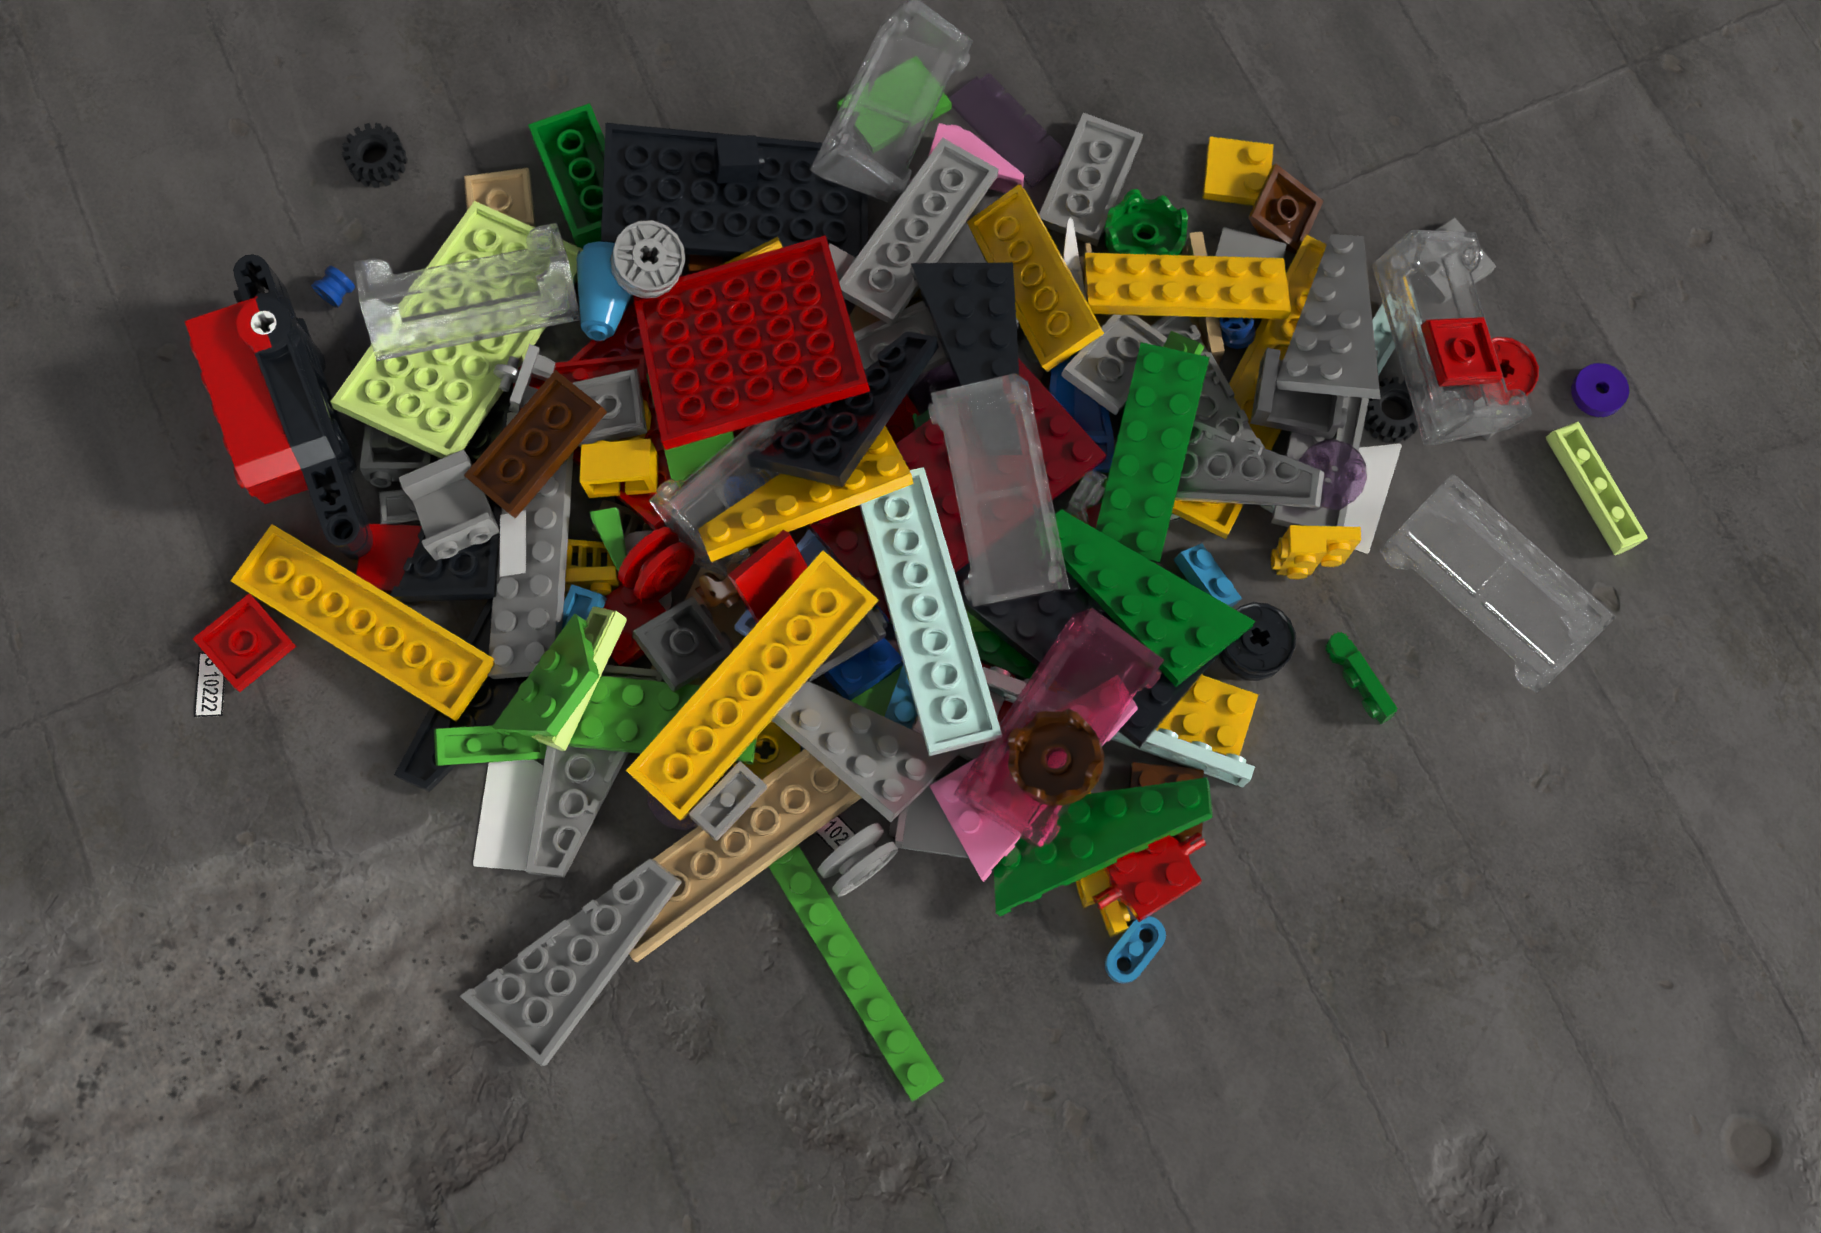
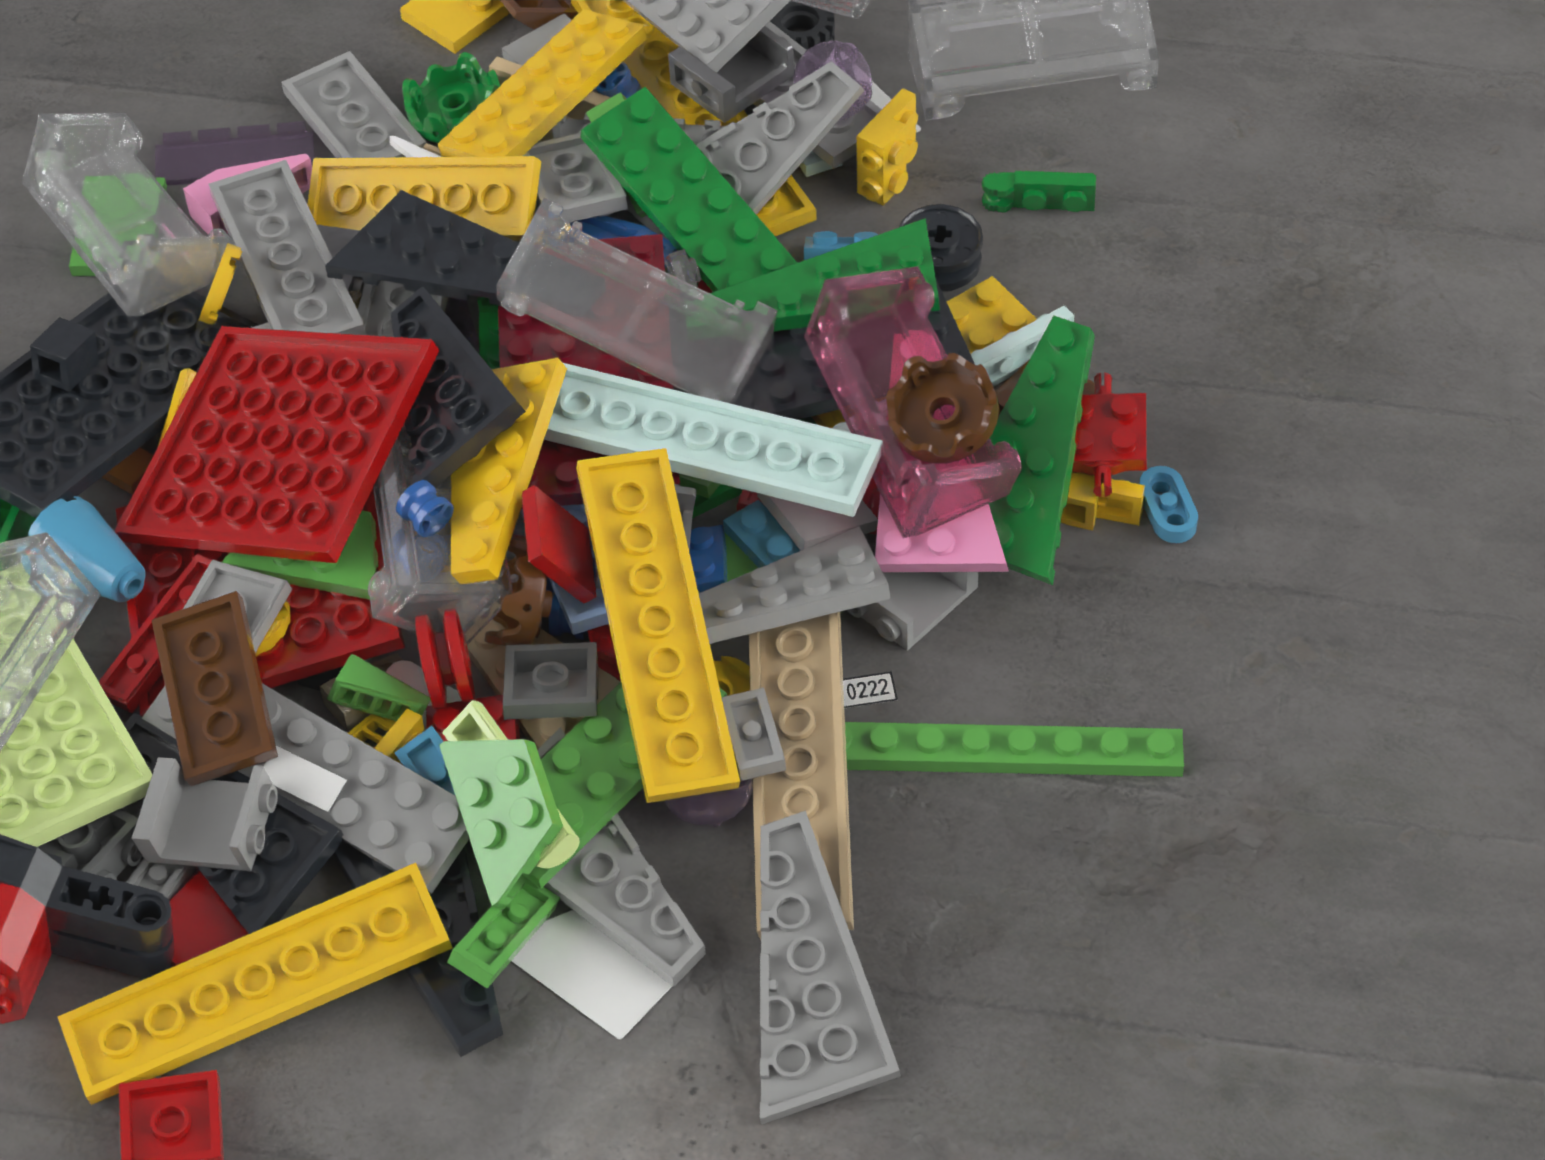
camera: 50 degrees left, 20 degrees down
(533, 366) = (121, 671): light grey hips -> none
(609, 463) = (311, 615): yellow piece -> none
(647, 240) = (105, 478): light grey wheel -> none
(736, 475) = (424, 508): none -> blue wheel
(857, 859) = (903, 664): light grey wheel -> none
(866, 206) = (220, 284): none -> yellow tile

